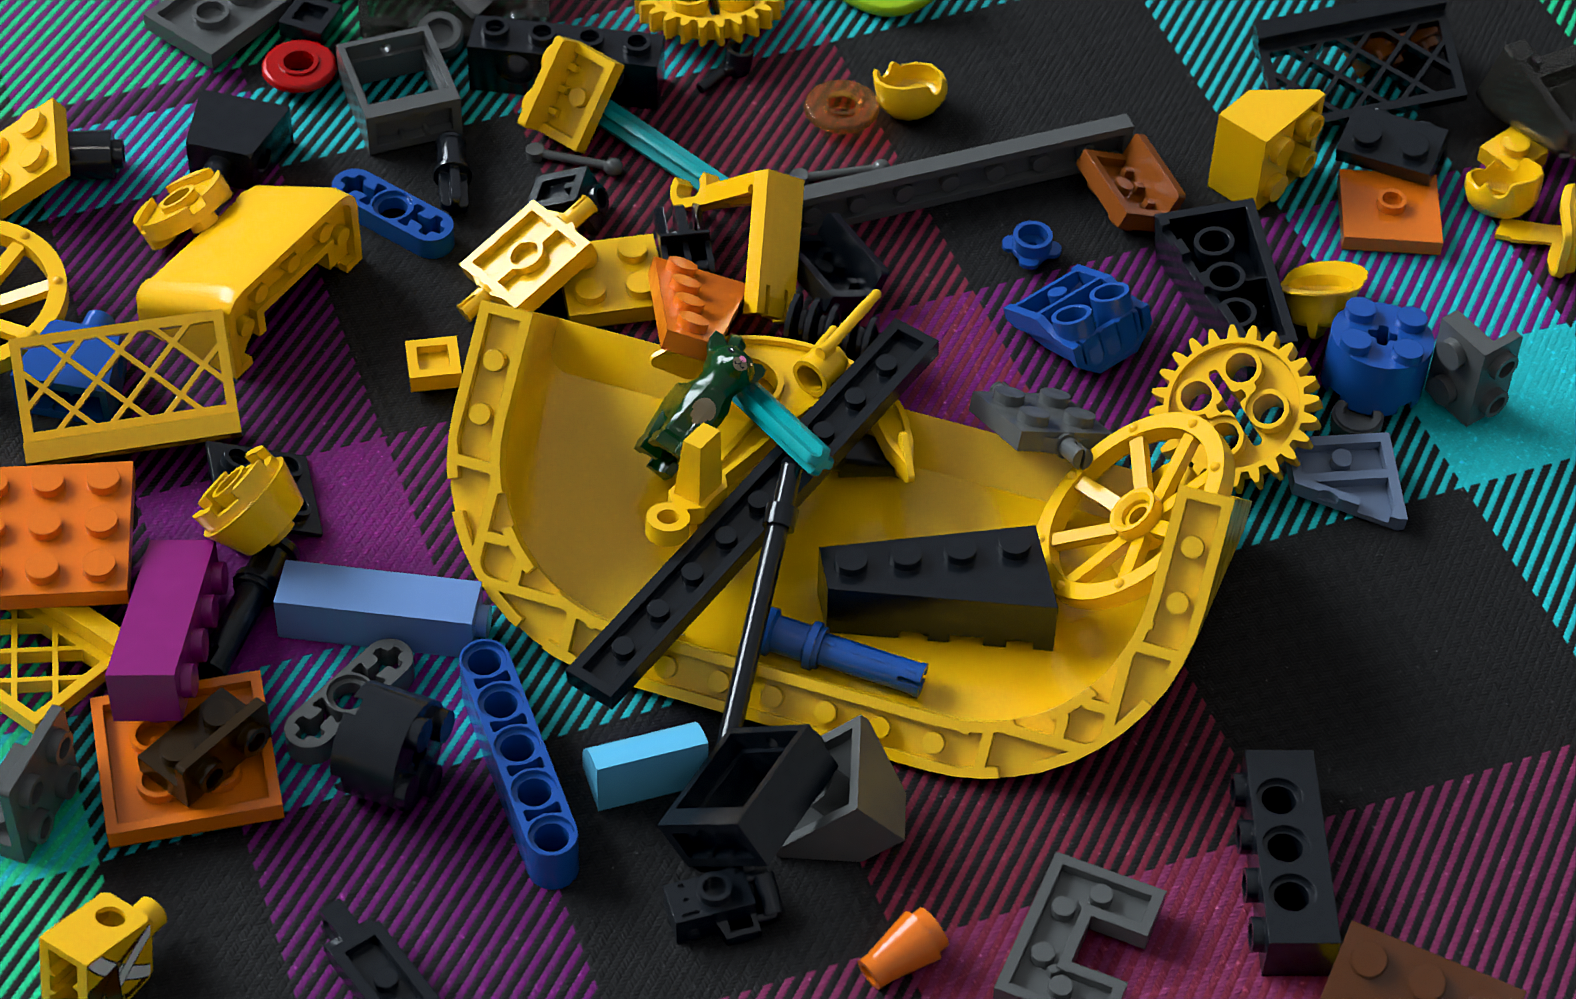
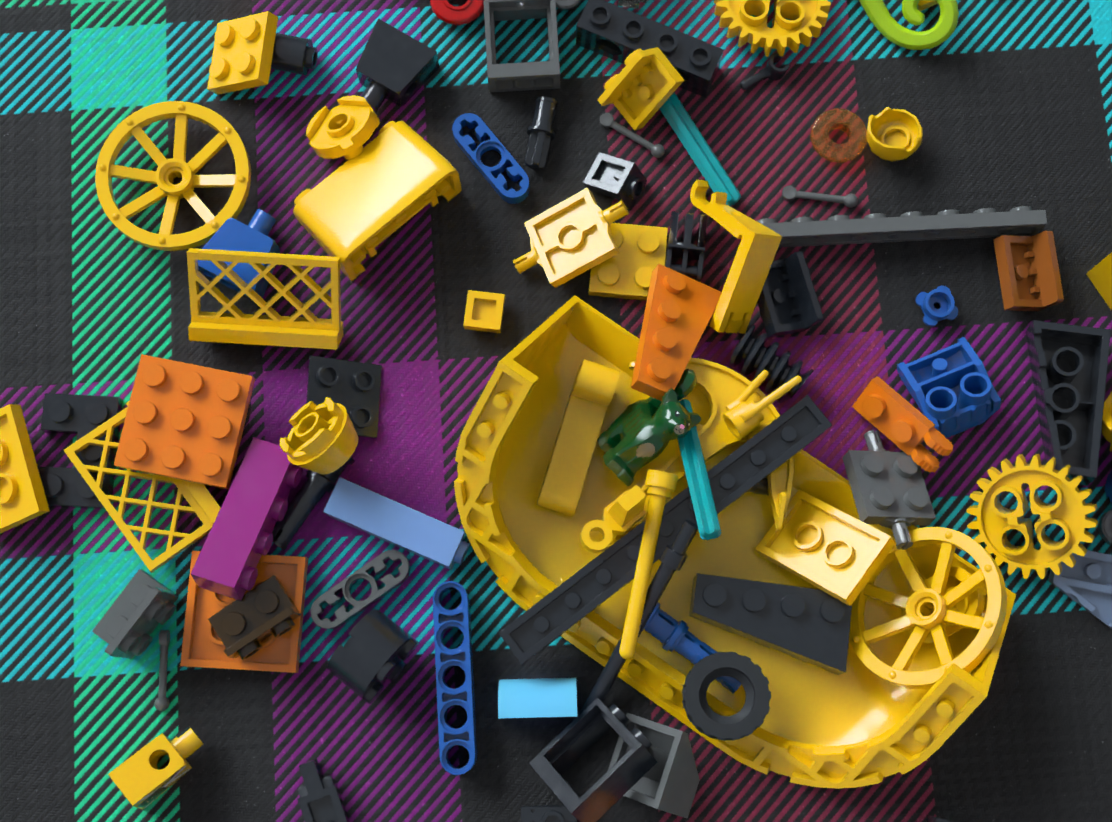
camera: 20 degrees right, 30 degrees up
(85, 893) = (162, 702): none -> dark grey hinge
(606, 448) = (577, 437): none -> yellow beam
(737, 453) = (659, 487): none -> yellow piece
(903, 709) = (755, 688): none -> black tyre
(980, 488) = (826, 547): none -> yellow plate
(1027, 356) = (902, 424): none -> orange hinge

